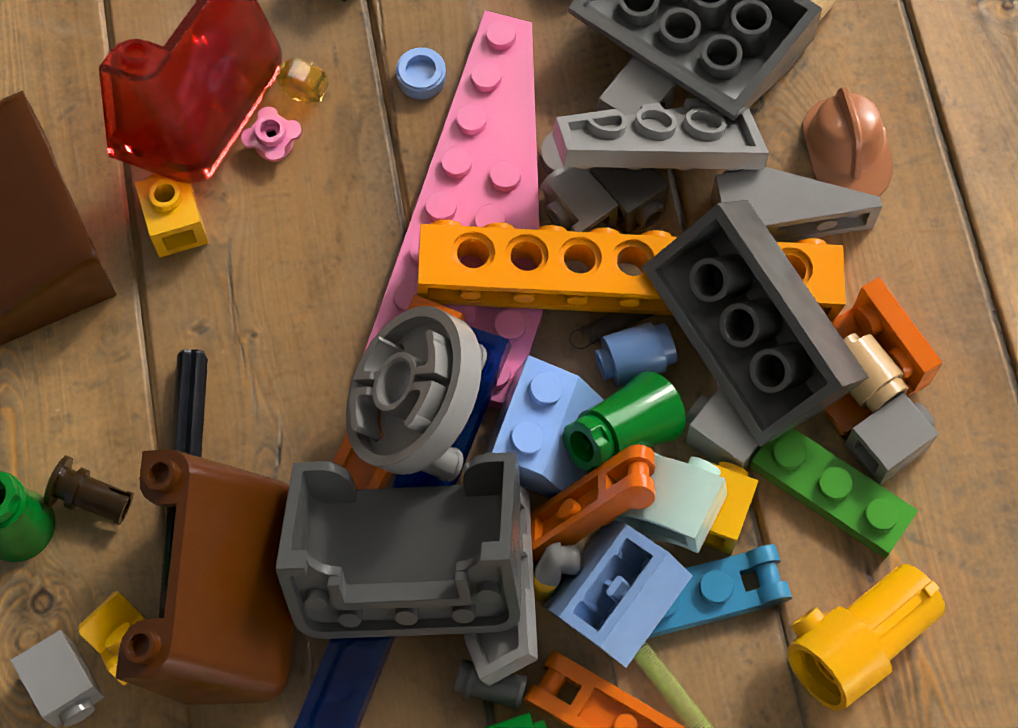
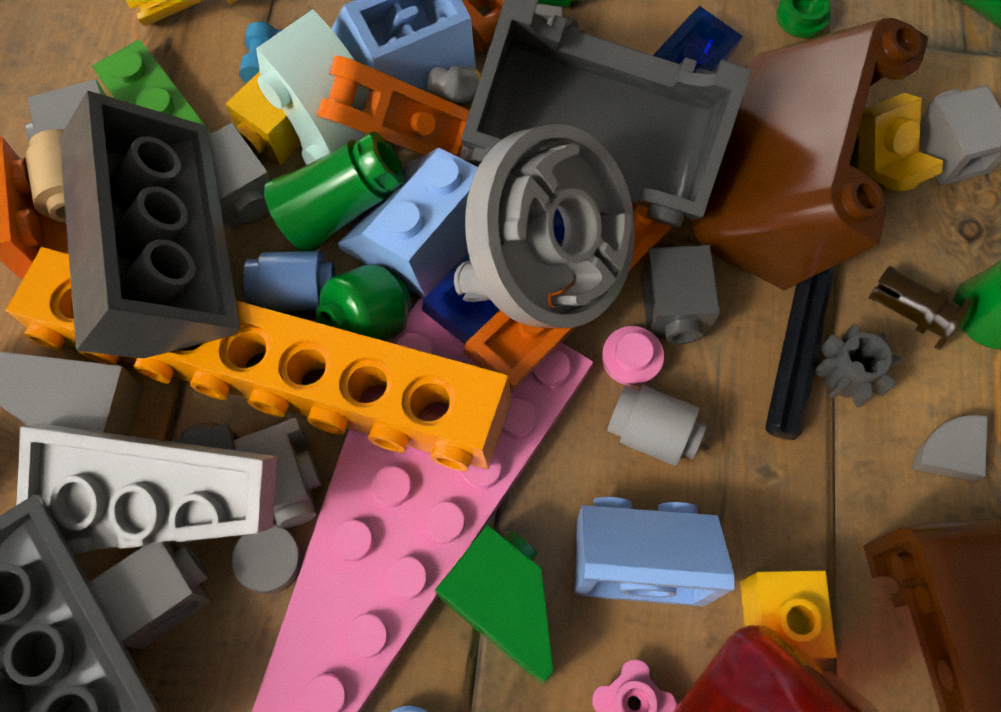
camera: 165 degrees left, 0 degrees up
(50, 382) = (955, 449): none -> light grey tile
(128, 407) = (857, 365): none -> dark grey gear
(281, 213) = (650, 554): none -> light blue slope
(296, 324) = (657, 424): none -> light grey brick
(299, 431) = (679, 293): none -> dark grey brick
(328, 380) = (632, 356): none -> bright pink plate
(382, 166) = (503, 598): none -> green slope
(564, 338) = (365, 302): none -> green head

